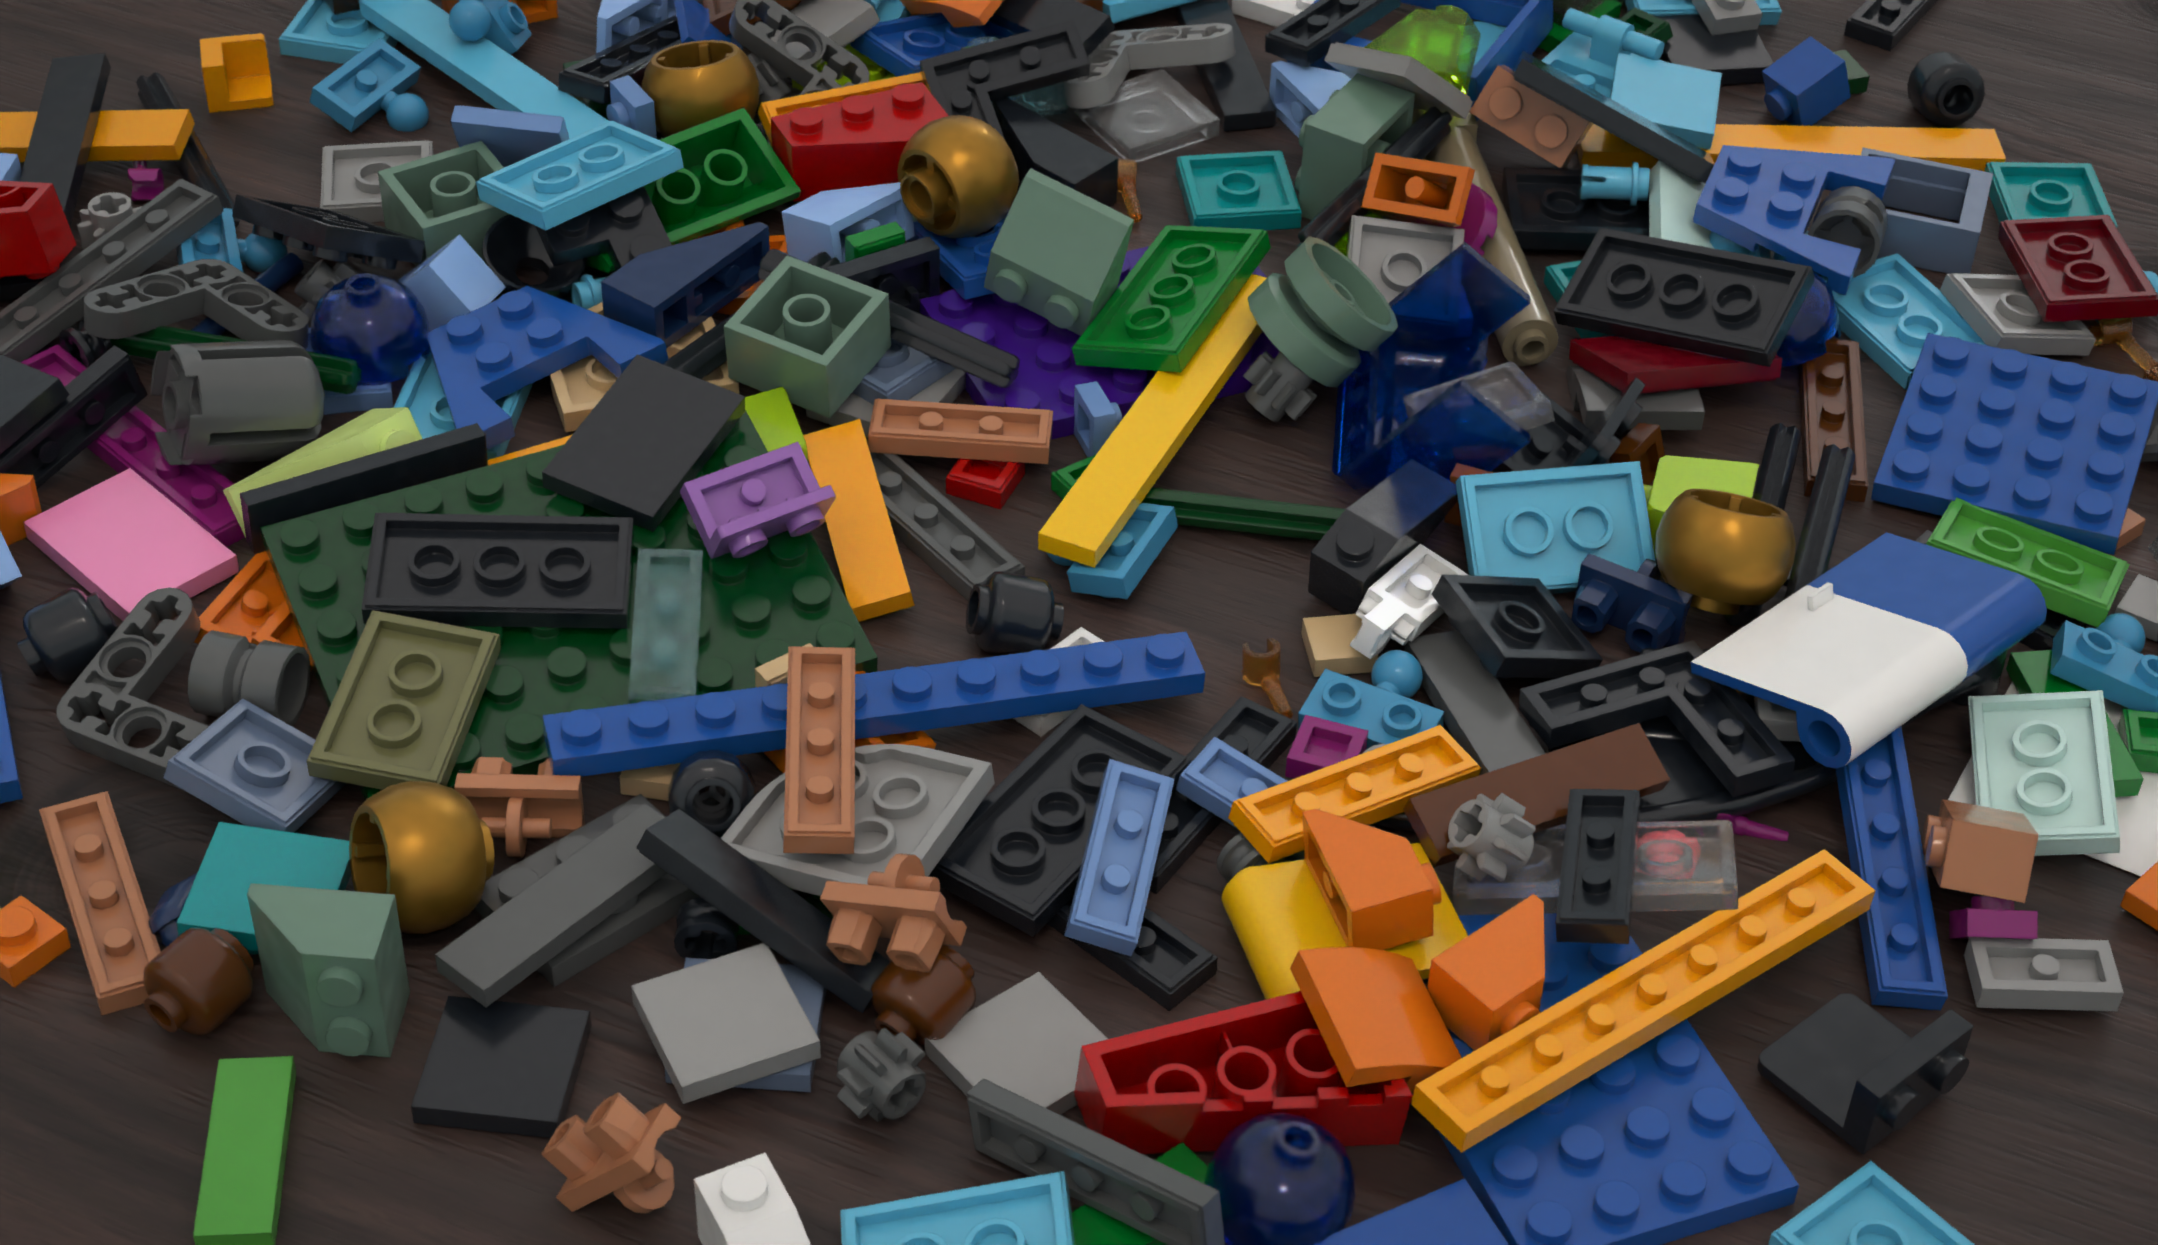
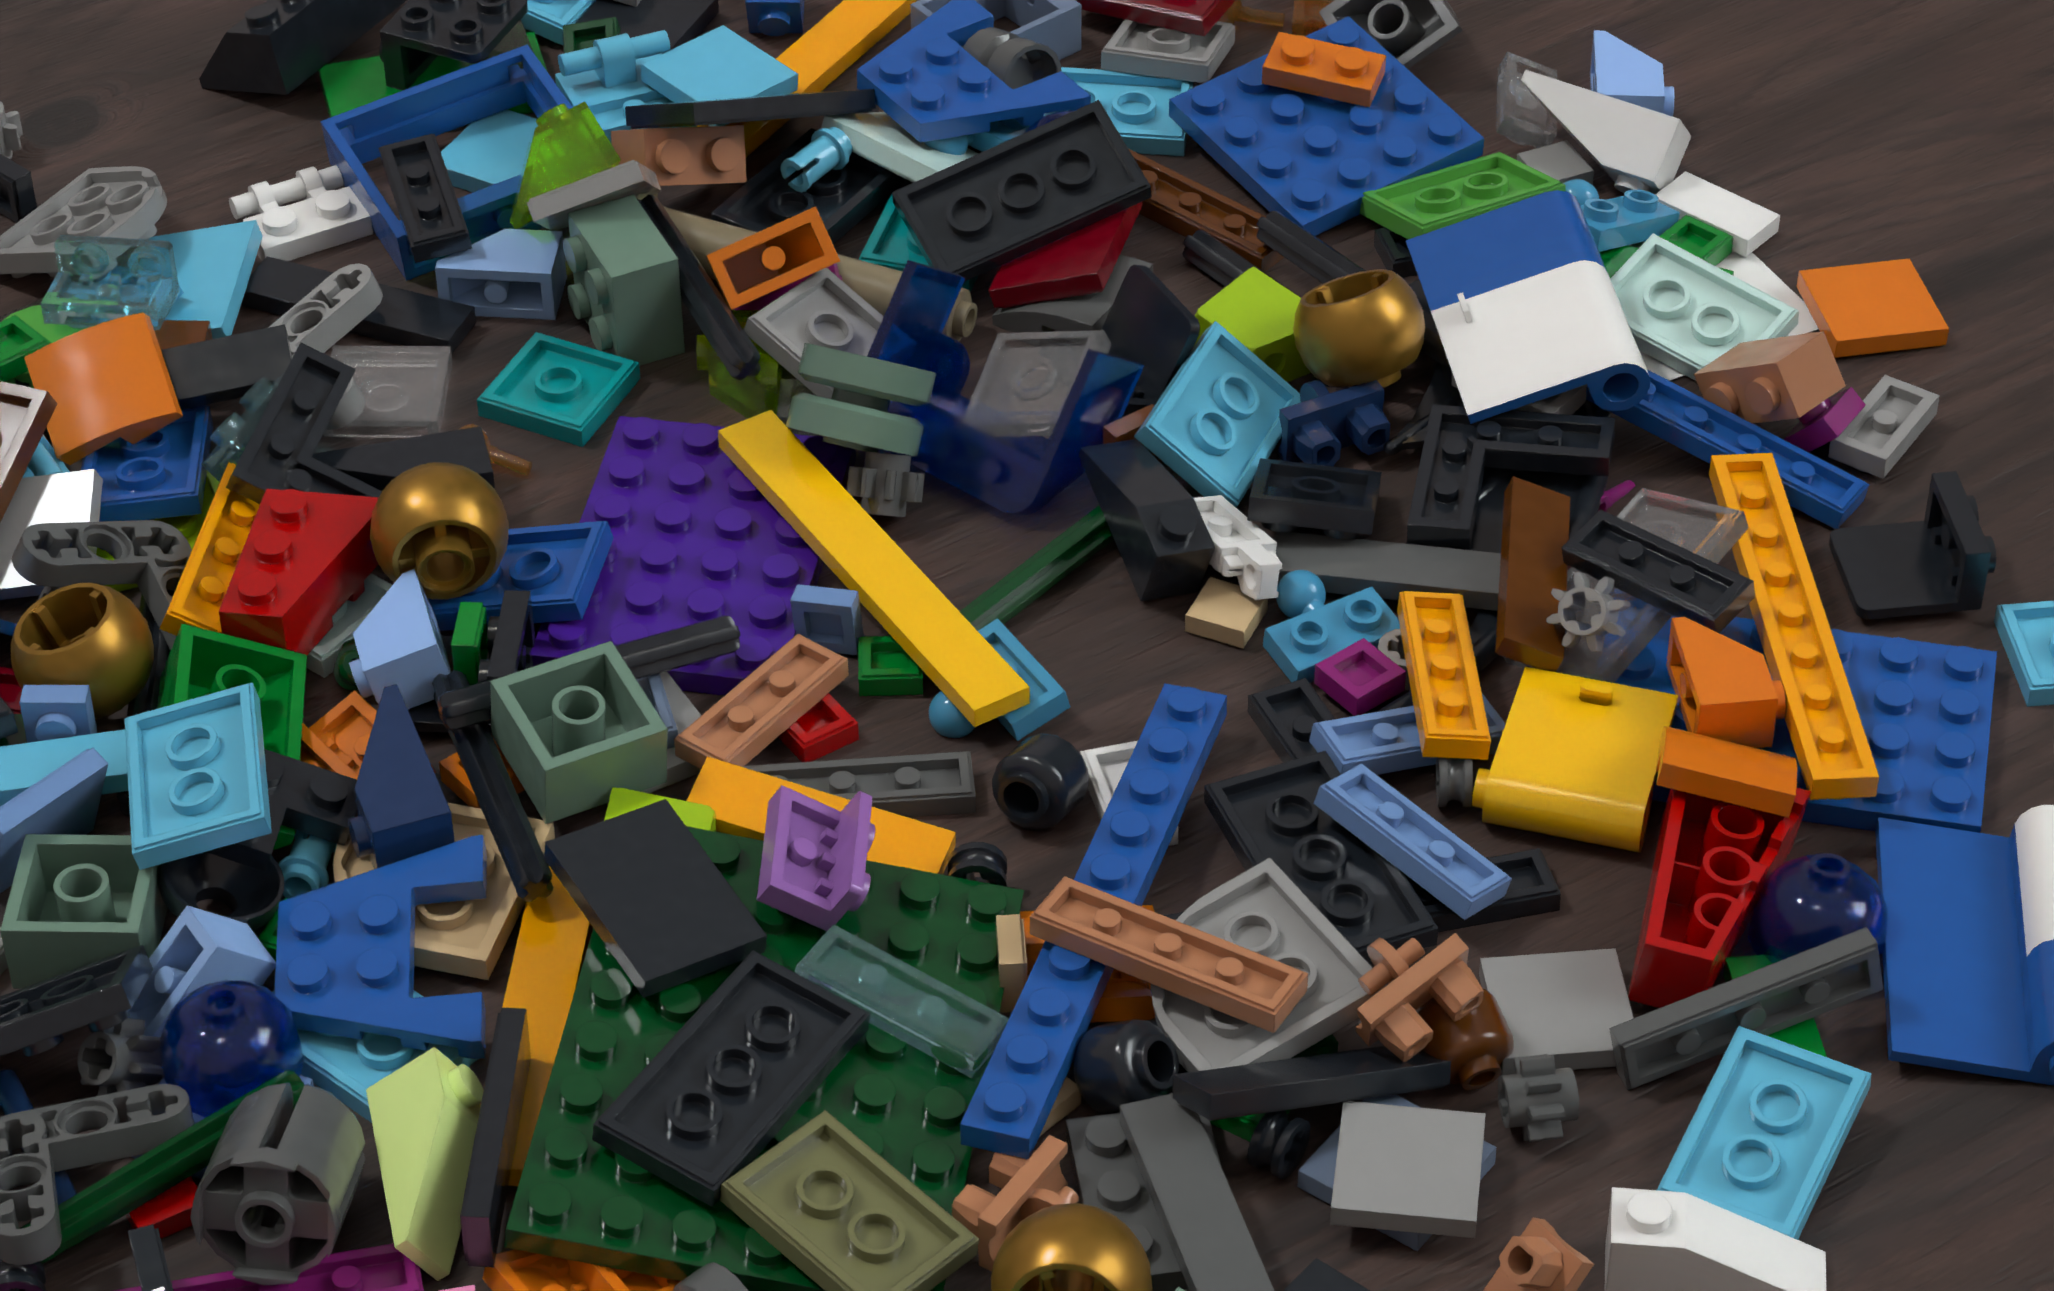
camera: 55 degrees left, 0 degrees up
(882, 624) = (978, 858): none -> black bush
(1058, 253) = (643, 513): sand green slope -> none
(1172, 298) = (726, 486): green tile -> none
(1264, 671) = (1215, 672): clear orange hand -> none
(1370, 881) = (1581, 703): orange slope -> none
(2060, 393) = (1324, 69): none -> orange plate

